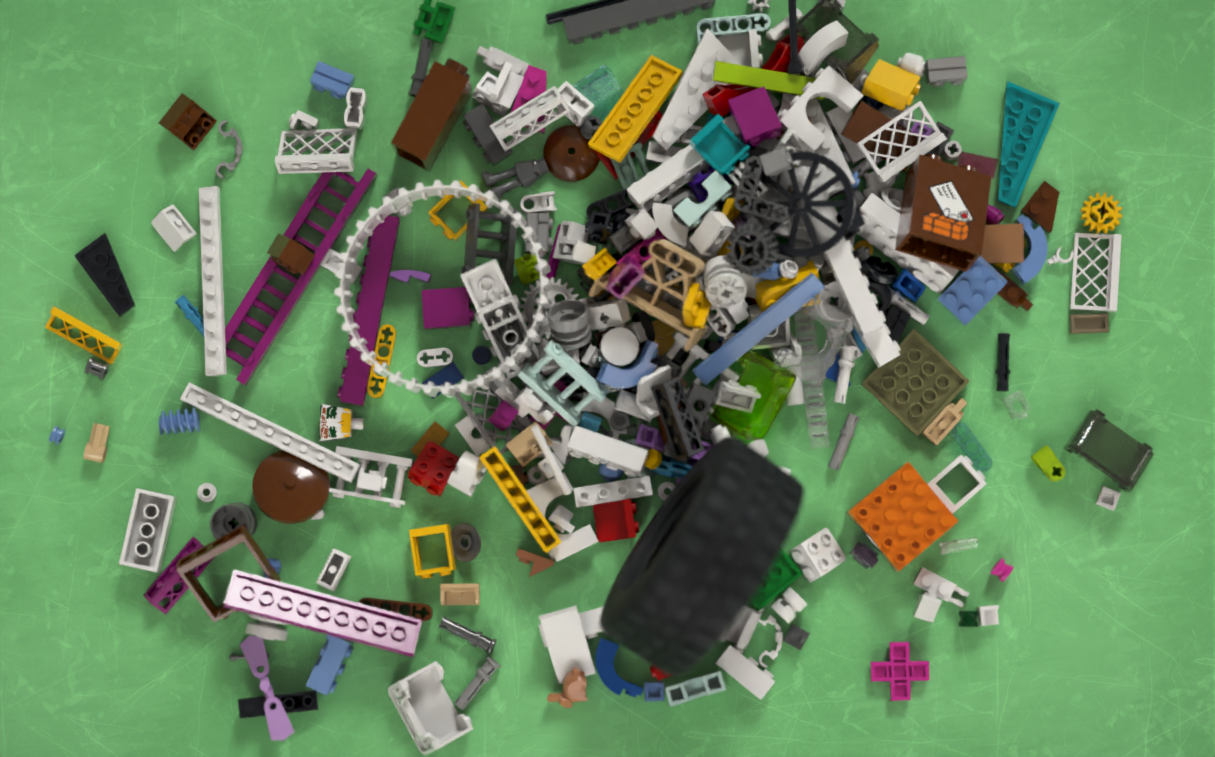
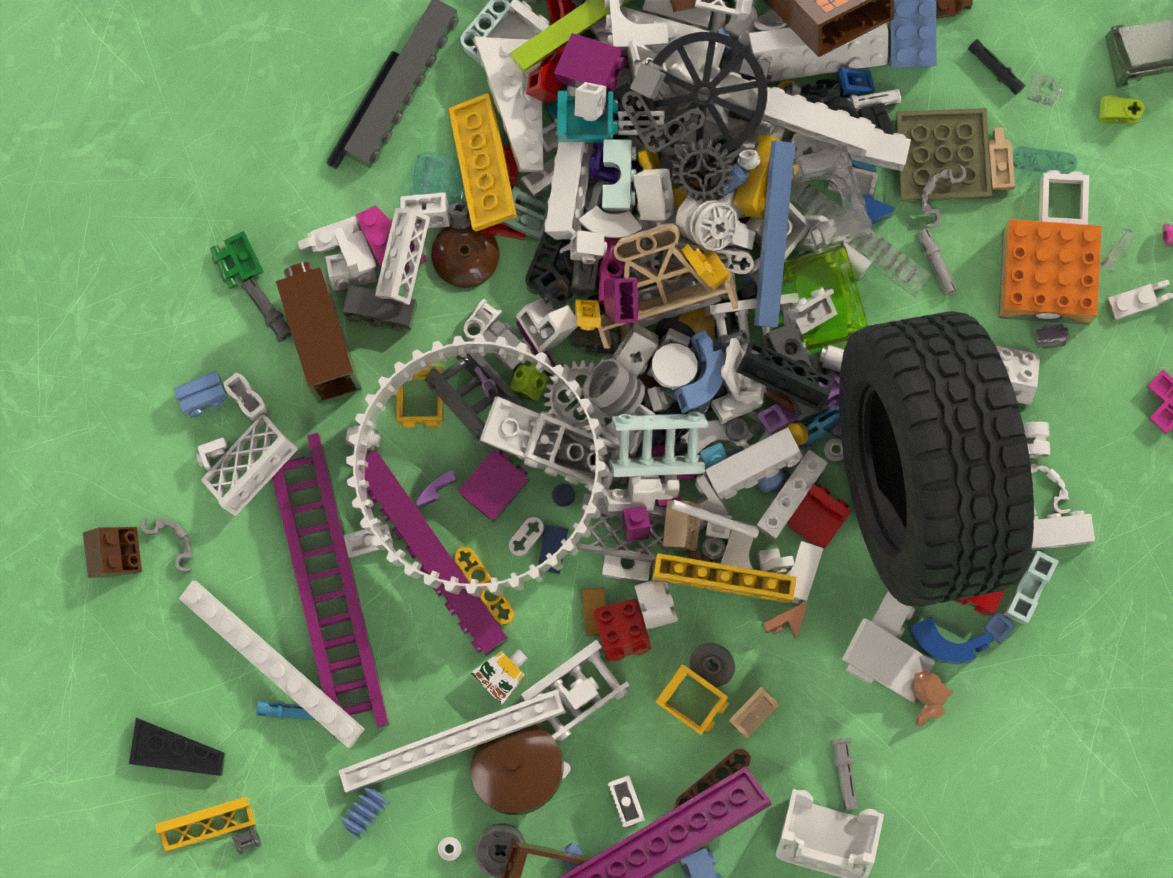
camera: 40 degrees left, 5 degrees down
(173, 227) = (190, 654): white panel -> none
(290, 254) = (315, 571): reddish brown brick -> none
(476, 639) = (805, 736): dark grey pin -> none
(502, 244) = (487, 384): none -> lavender hand
(526, 174) = (444, 307): dark grey piece -> none
(730, 139) = (590, 101): none -> white brick
(796, 637) = (1067, 460): dark grey tile -> none
(846, 363) = (874, 193): white pin -> none
(884, 394) = (946, 173): none -> light grey piece
(927, 606) = (1147, 324): white slope -> none

